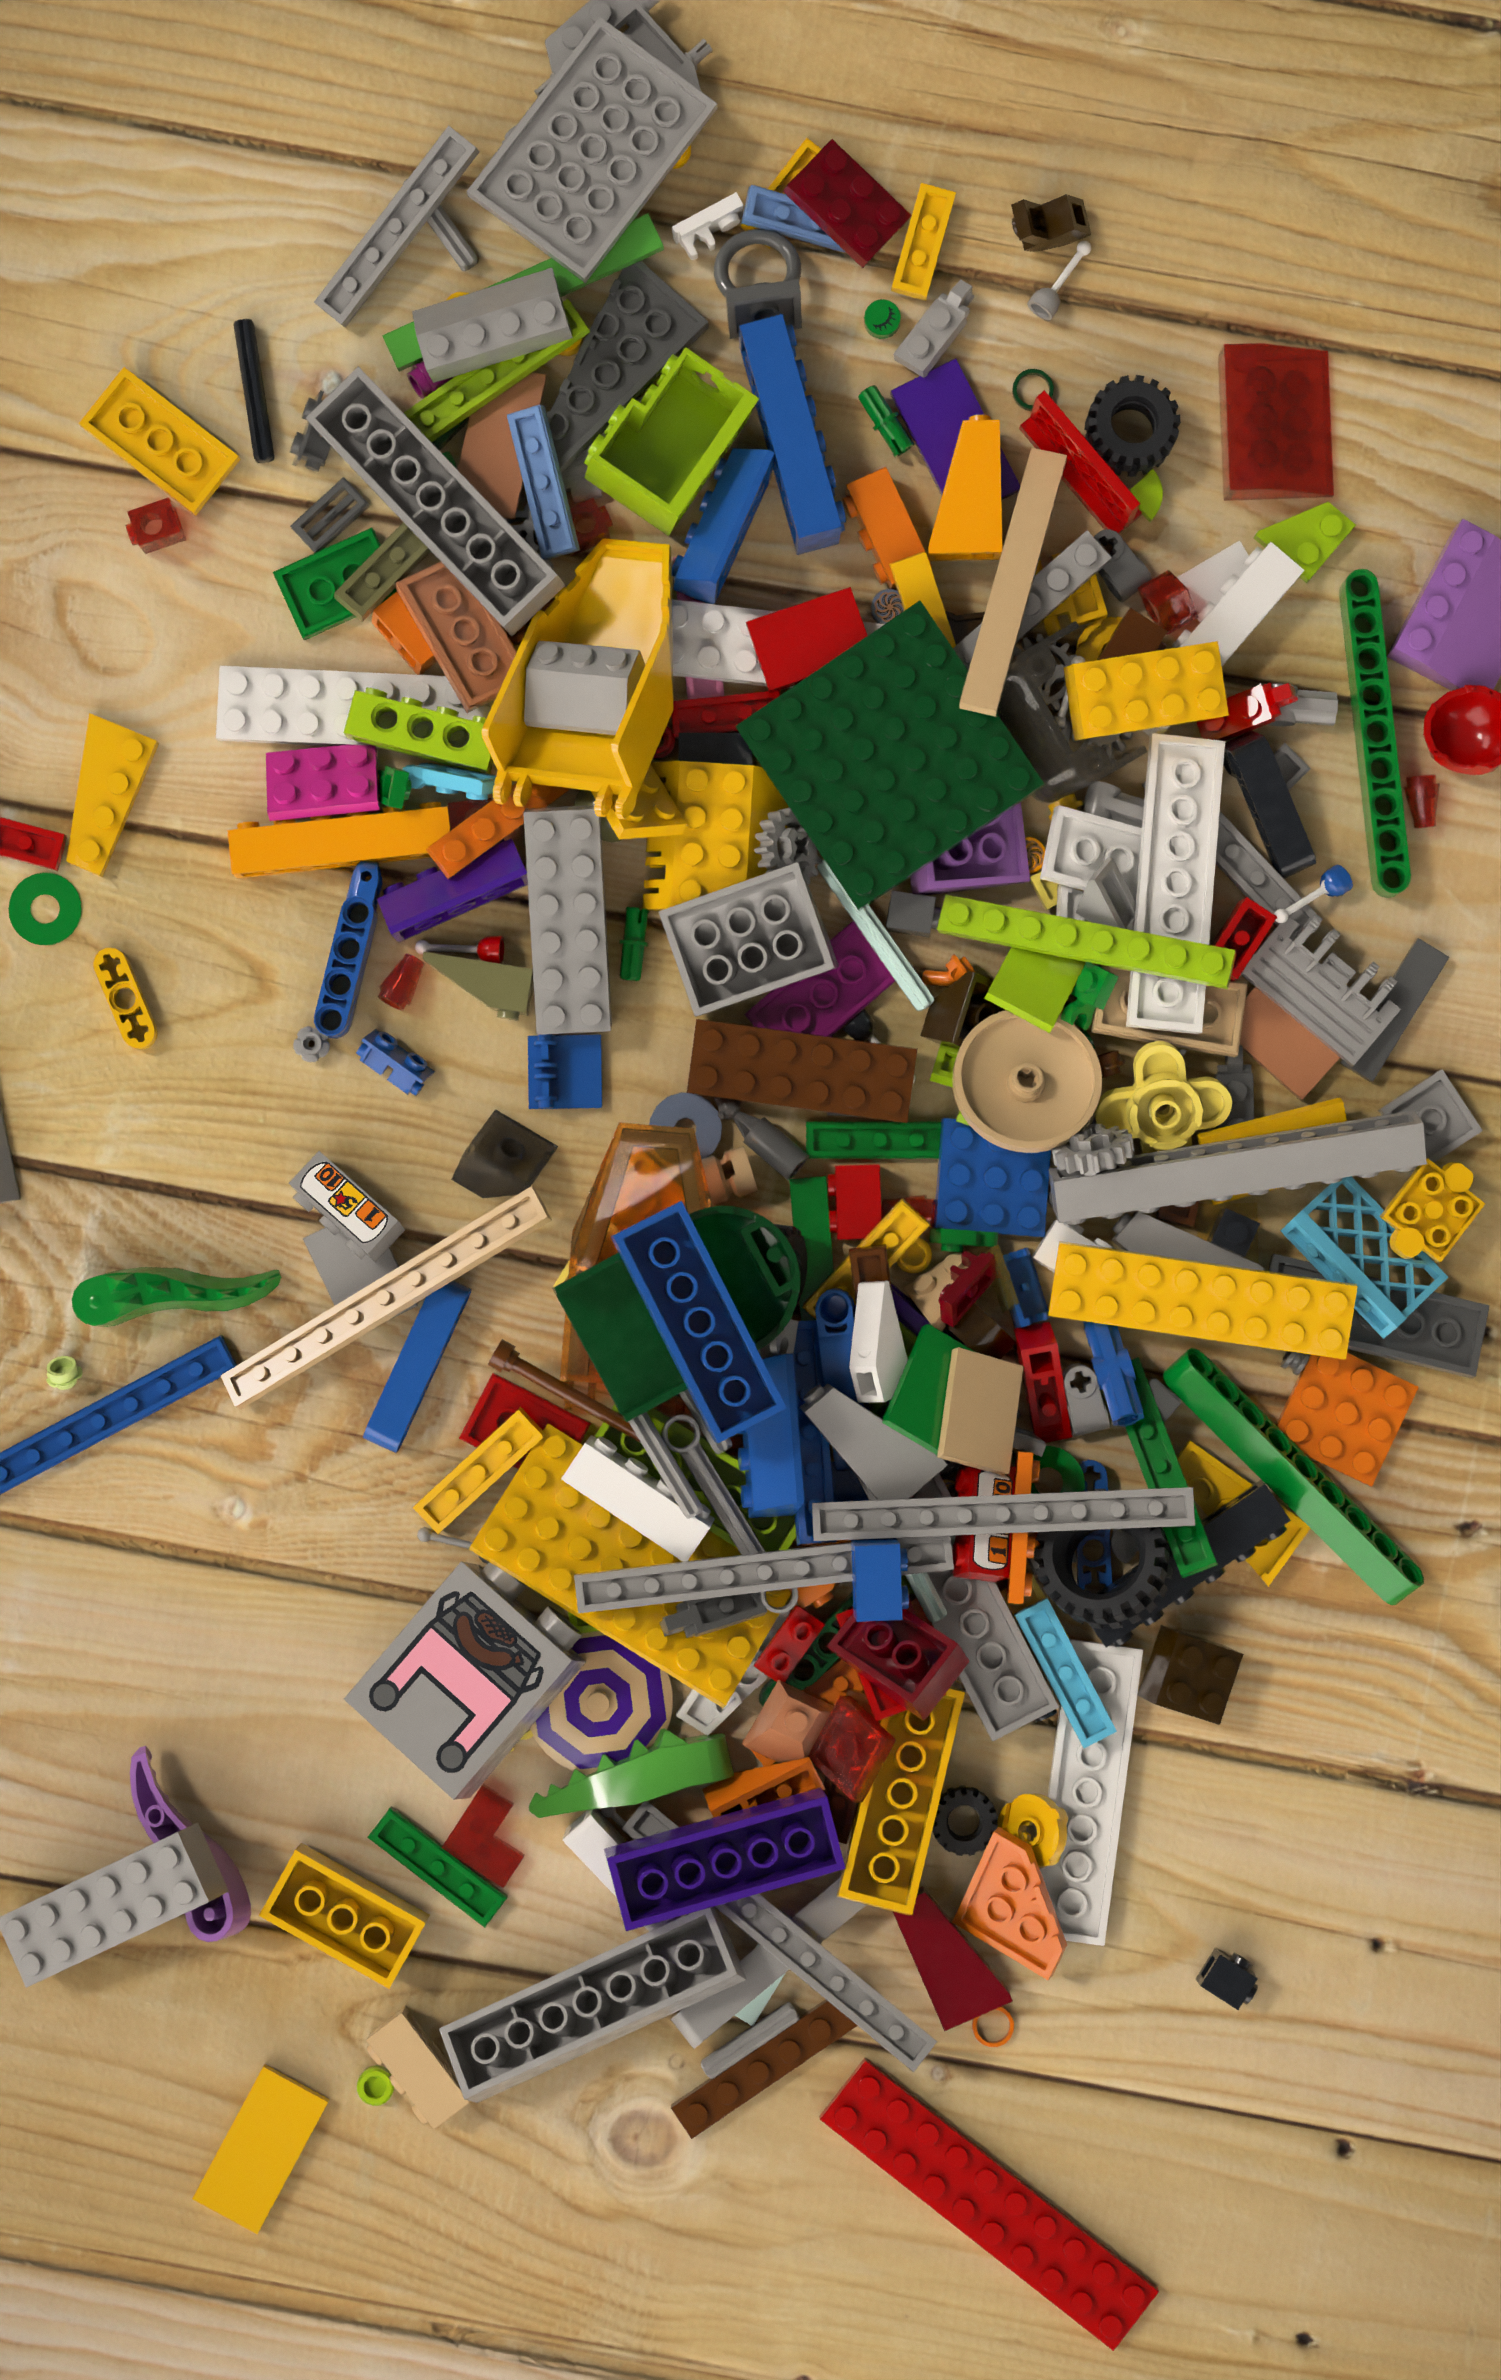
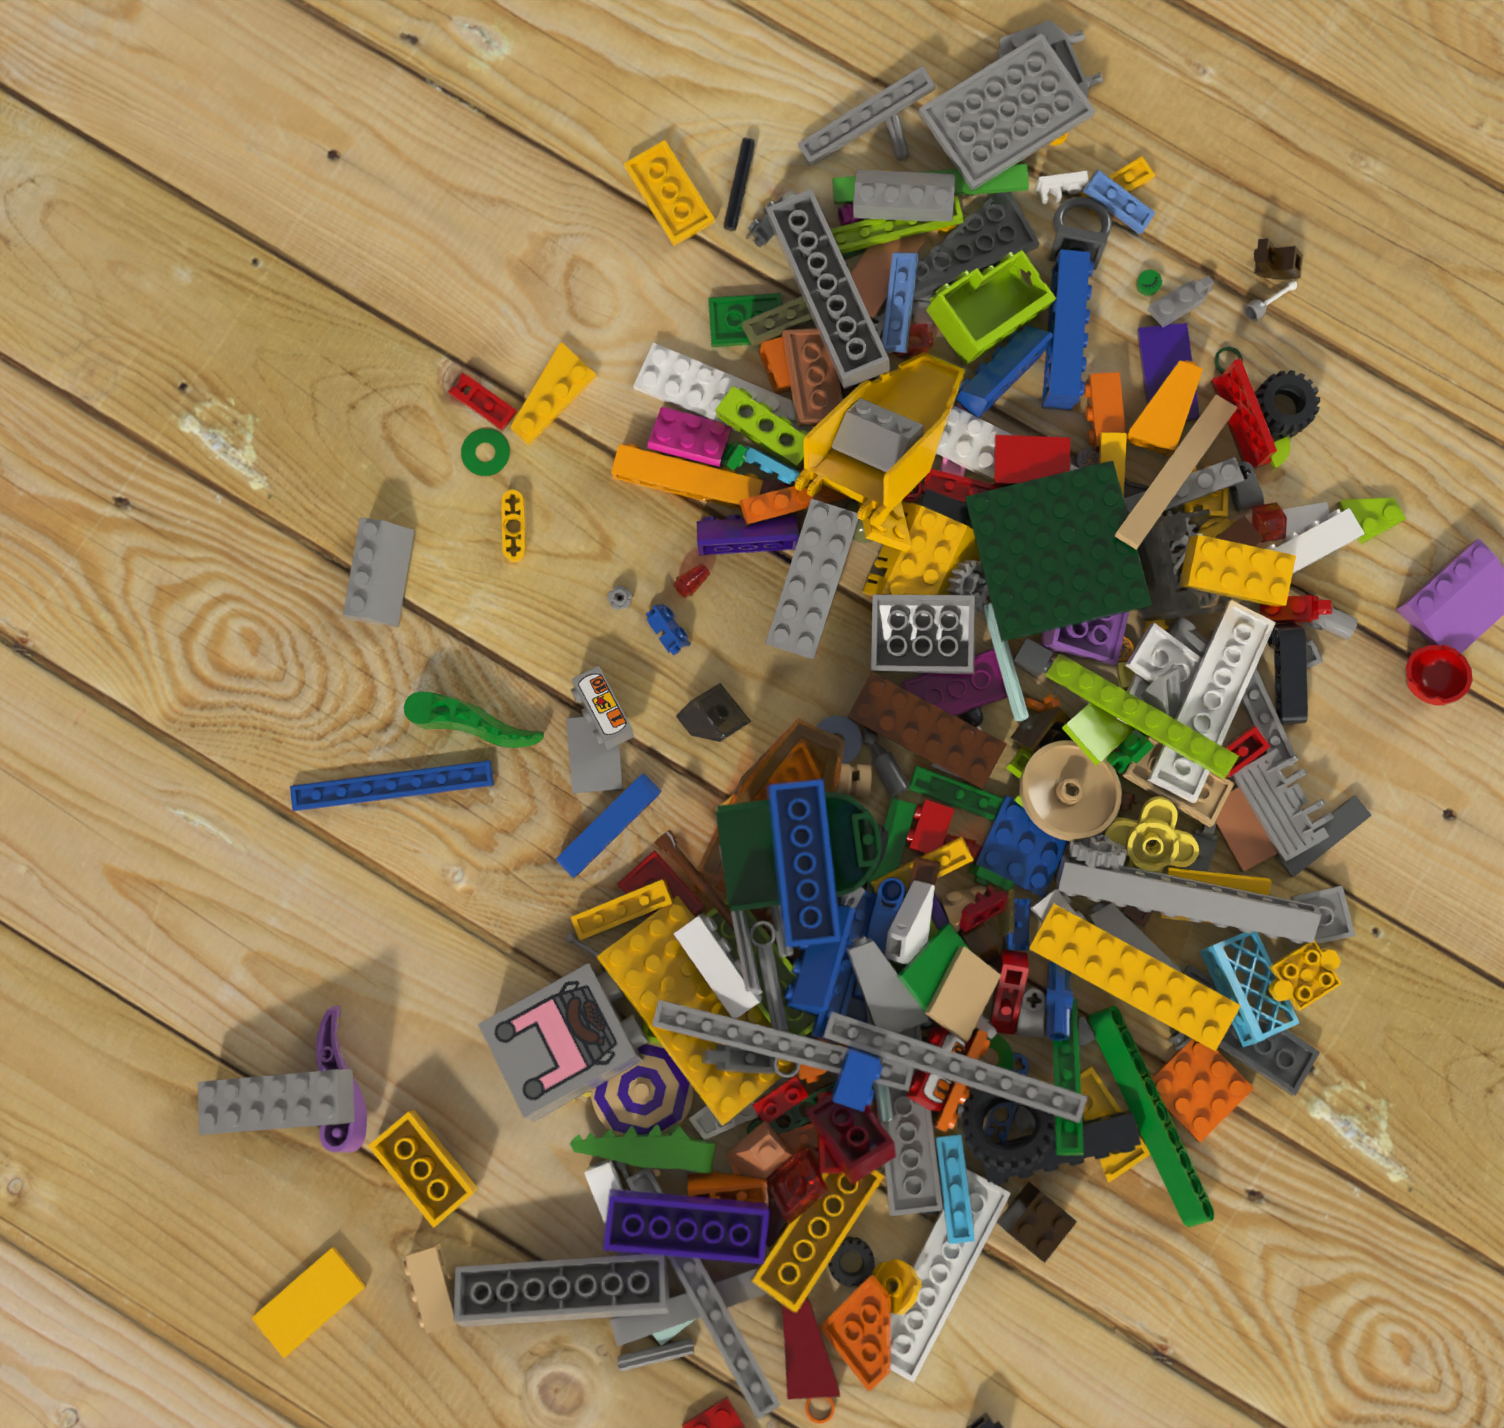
camera: 20 degrees right, 5 degrees down
(63, 1372) = (381, 746): yellowish green plate -> none
(170, 532) = (652, 251): clear red brick -> none
(340, 525) = (762, 284): dark grey tile -> none
(358, 894) = (686, 515): blue piece -> none
(375, 2086) = (399, 1289): lime tile -> none
(386, 1297) = (605, 775): tan plate -> none
(437, 1867) = (496, 1159): green tile -> none
(475, 1840) = (527, 1149): clear red plate -> none
(488, 949) = (754, 580): hinge -> none
(493, 984) = (748, 602): olive slope -> none
(564, 1071) = (773, 675): blue hinge -> none
(633, 943) = (848, 611): green axle -> none
(761, 2068) = (656, 1376): reddish brown plate -> none
(847, 203) = (1153, 203): dark red plate -> none
(885, 420) = (1128, 345): green axle -> none
(916, 1257) = (955, 878): yellow plate -> none
(923, 241) = (1192, 244): yellow plate -> none
(1233, 1232) = (1169, 939): black brick -> none
(1275, 422) = (1376, 435): clear red slope -> none
(1333, 883) = (1312, 739): hinge -> none
(1382, 717) = (1381, 646): green beam -> none
(1422, 798) = (1389, 707): clear red cone -> none

